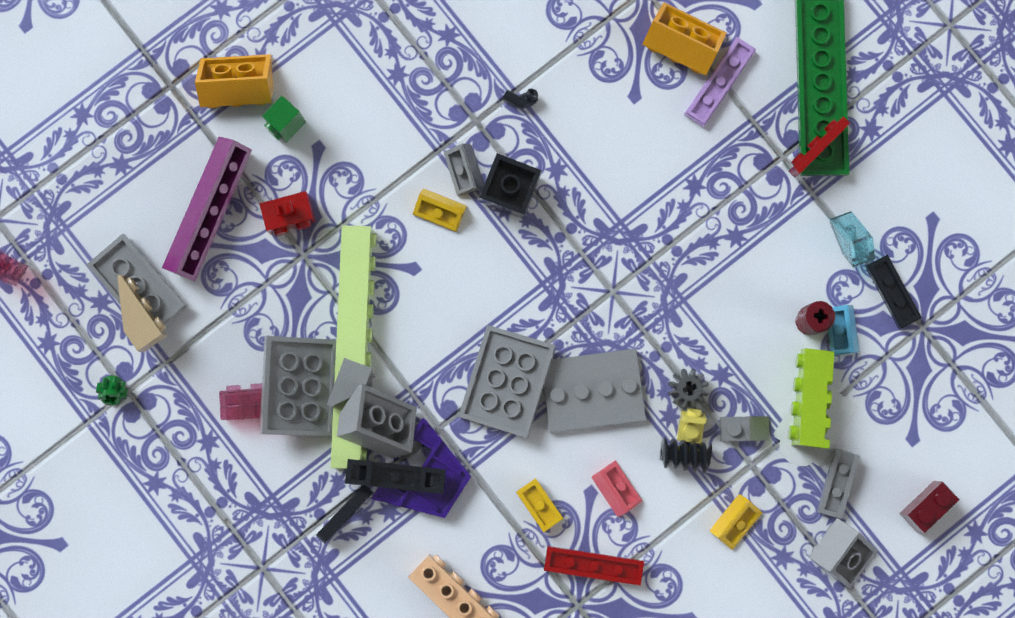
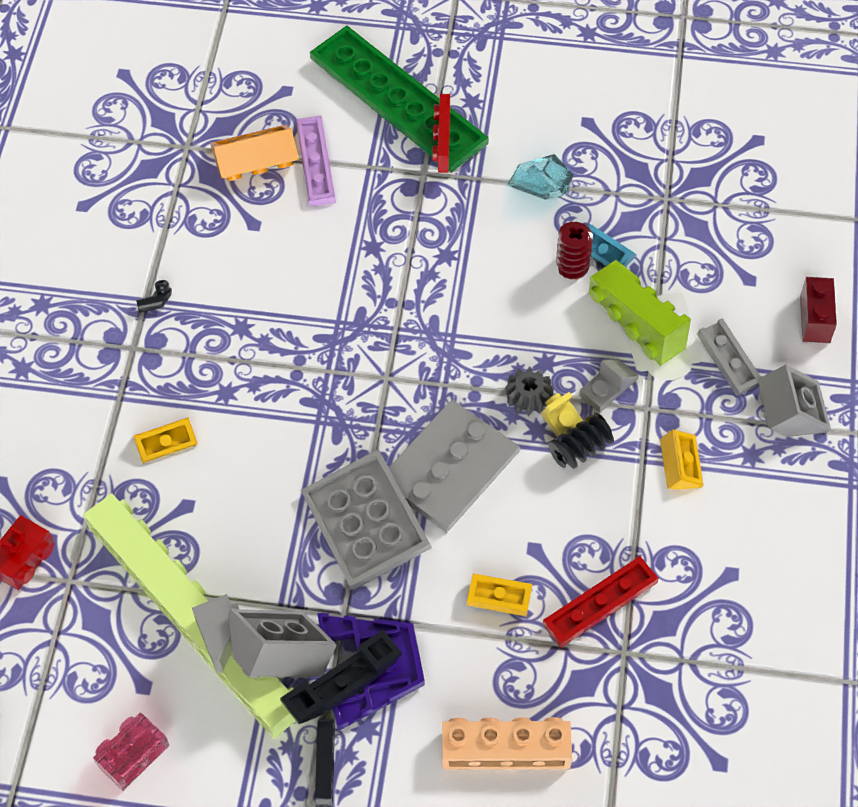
camera: 40 degrees left, 25 degrees down
(297, 386) = (170, 687): light grey plate -> none
(464, 169) = (156, 391): light grey slope -> none
(510, 186) = (212, 363): black brick -> none
(616, 489) = (553, 525): coral slope -> none
(893, 292) = (614, 191): black tile -> none

